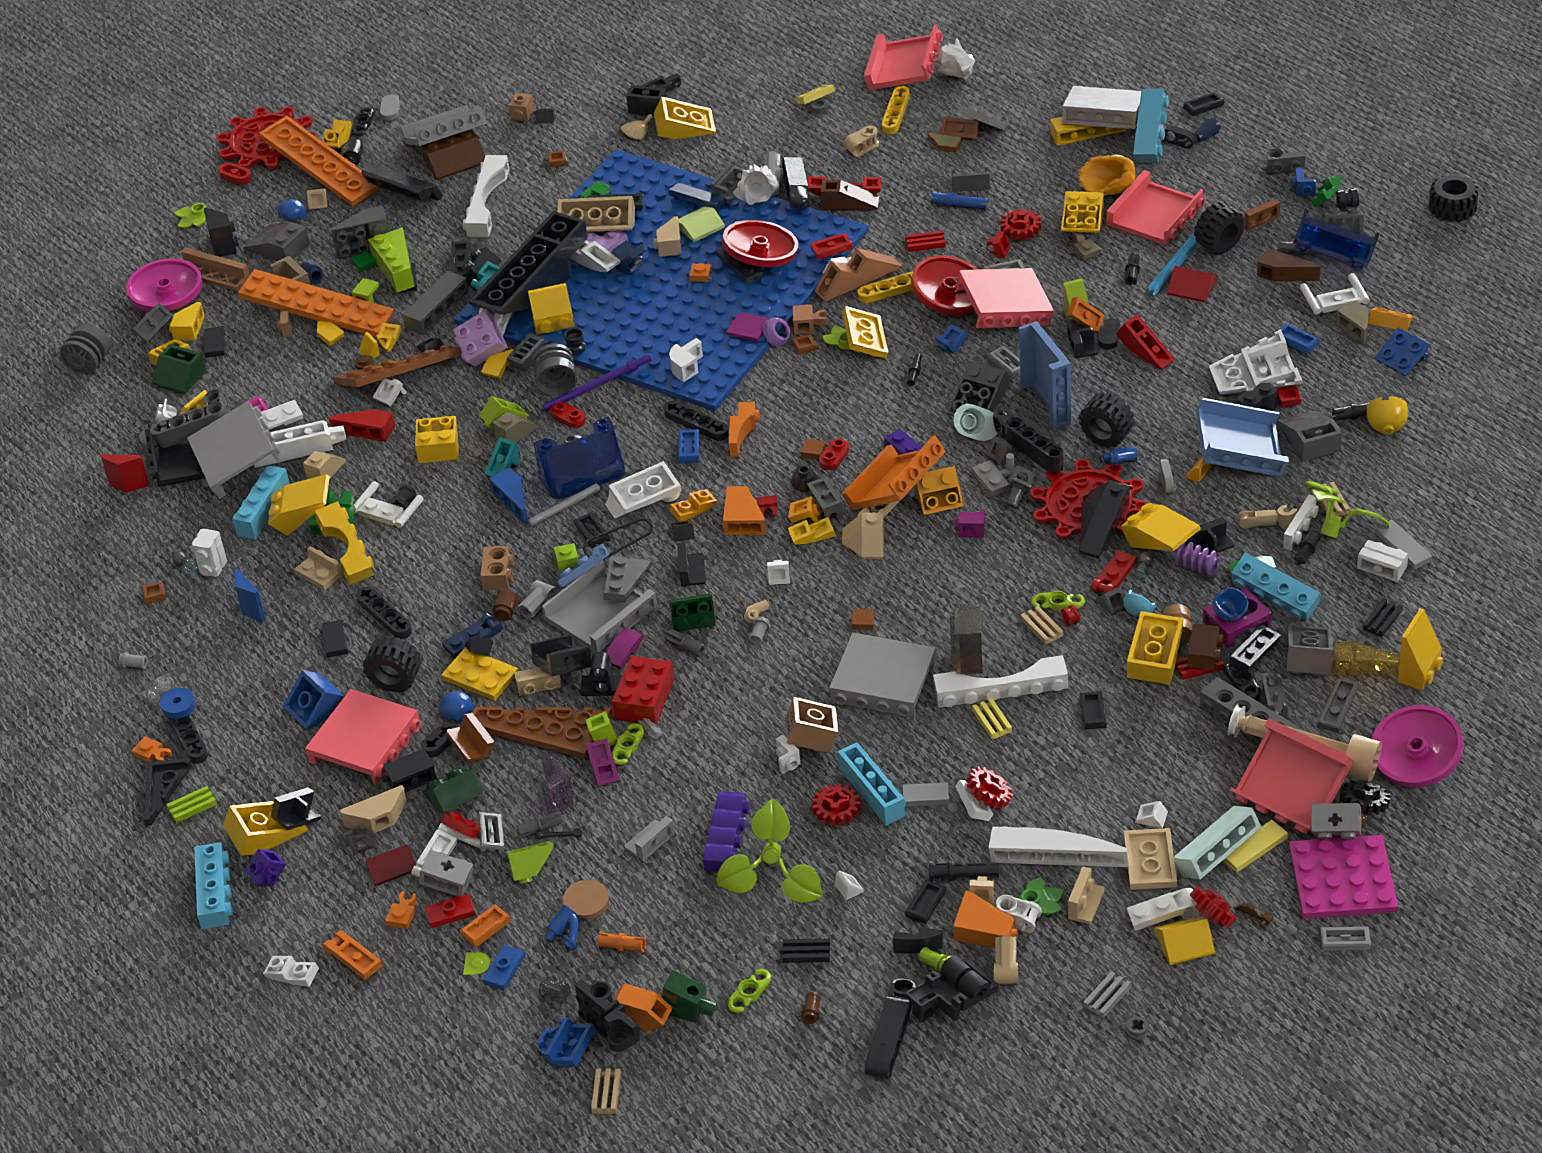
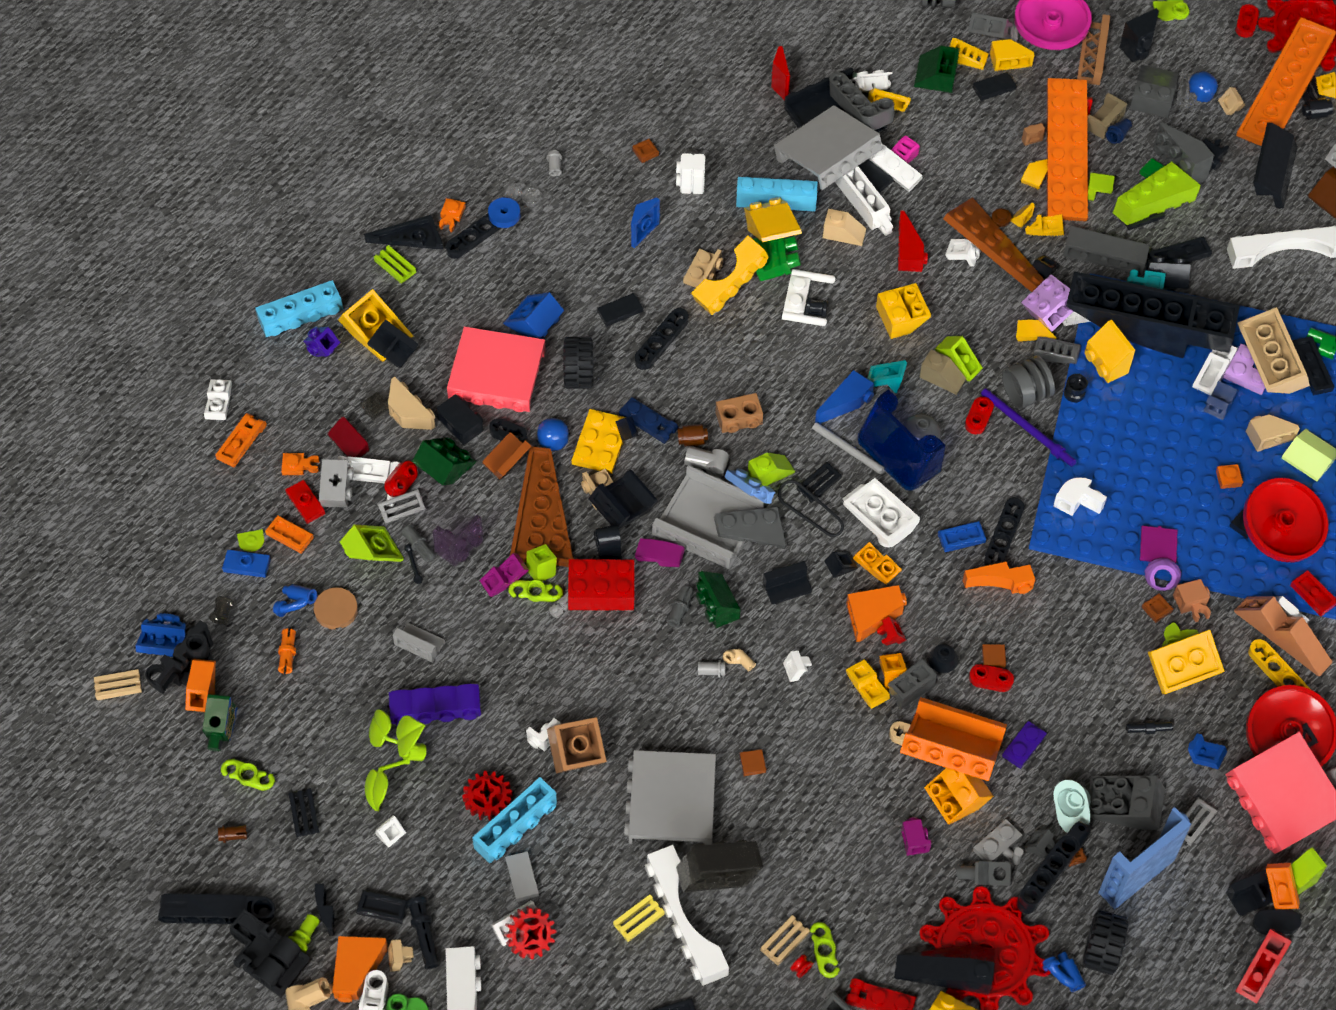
camera: 70 degrees right, 15 degrees up
(865, 536) = (869, 738): tan slope -> none

